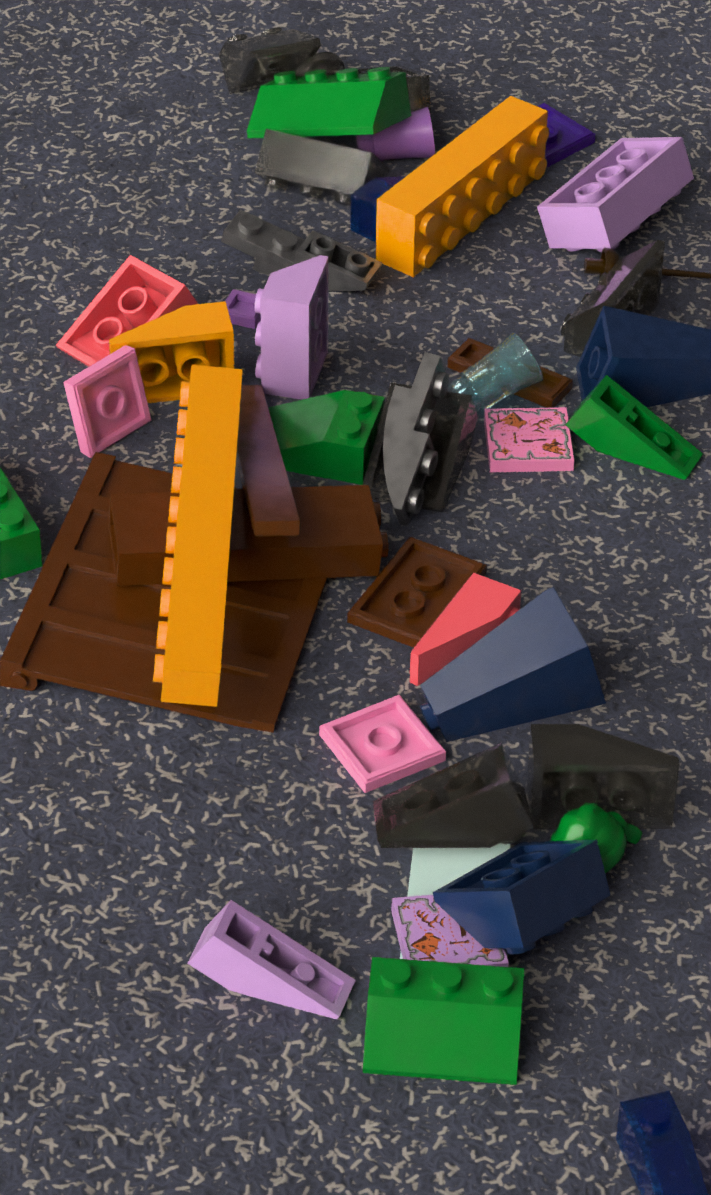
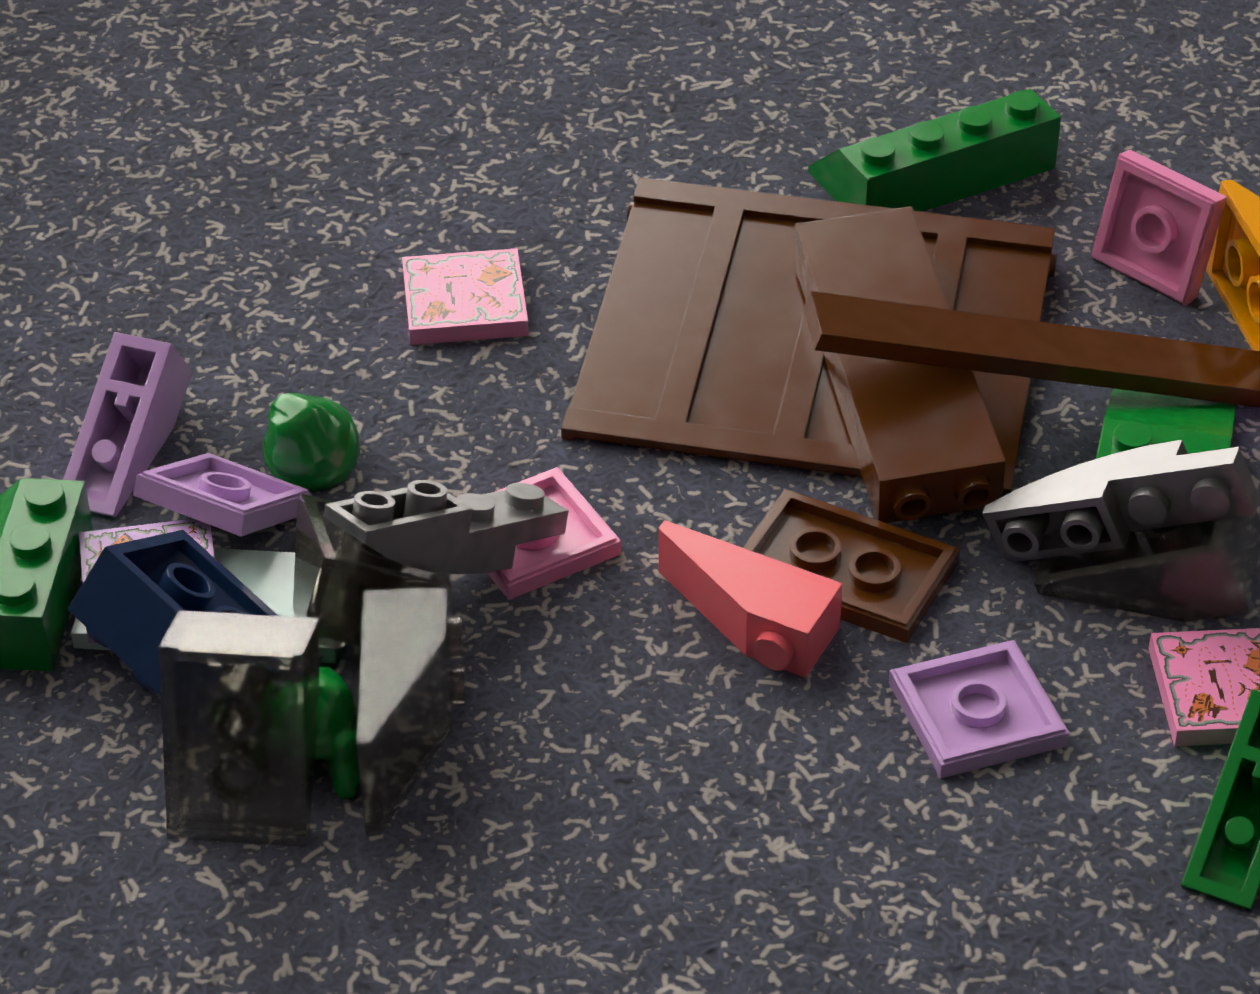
camera: 90 degrees right, 0 degrees up
(105, 781) = (464, 296): none -> bright pink tile
(201, 538) = (770, 272): light orange brick -> none
(285, 858) = (310, 441): none -> green hat
(358, 897) = (220, 493): none -> lavender tile
(433, 749) = (448, 533): none -> flat silver slope
(515, 674) = (652, 649): dark blue slope -> none
(549, 544) = (978, 708): none -> lavender tile
(633, 838) = (239, 726): none -> clear smoke slope

